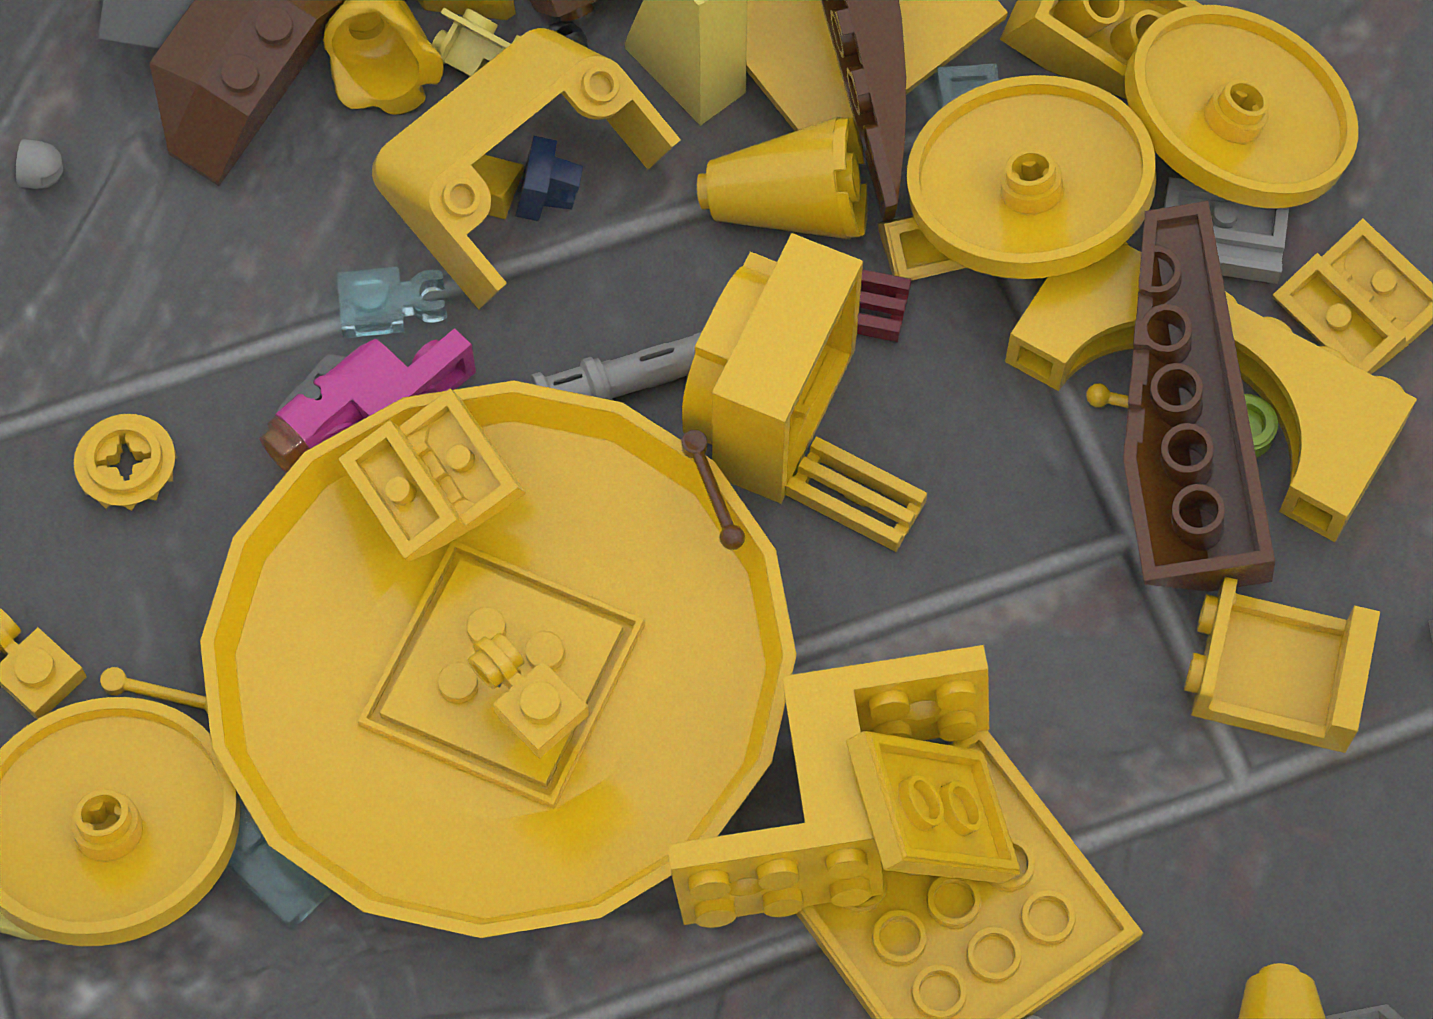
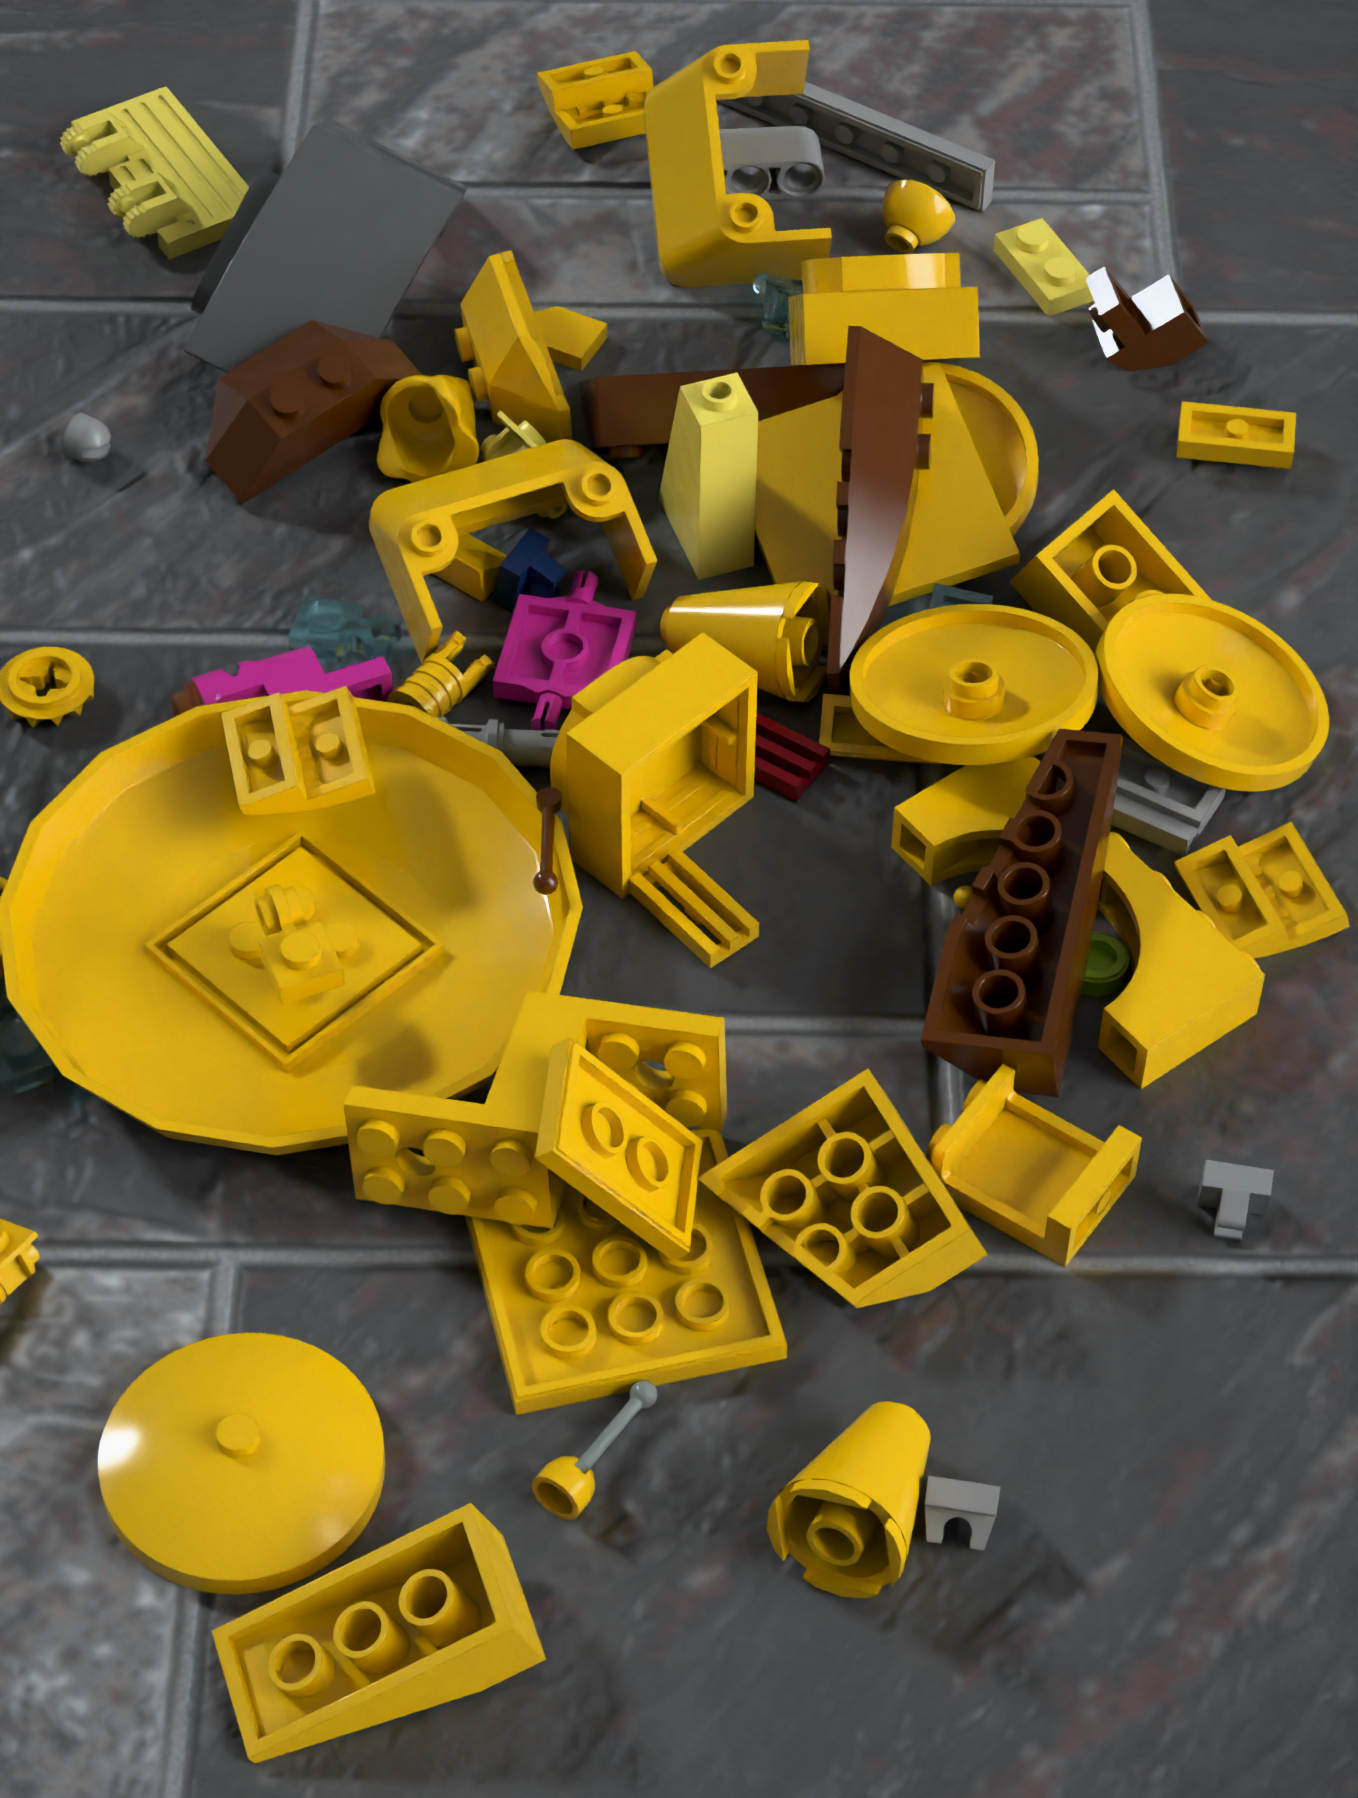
camera: 20 degrees right, 15 degrees down
(511, 334) = (438, 682): none -> yellow hinge
(617, 257) = (560, 648): none -> dark pink plate
(1144, 768) = (851, 1198): none -> yellow wedge

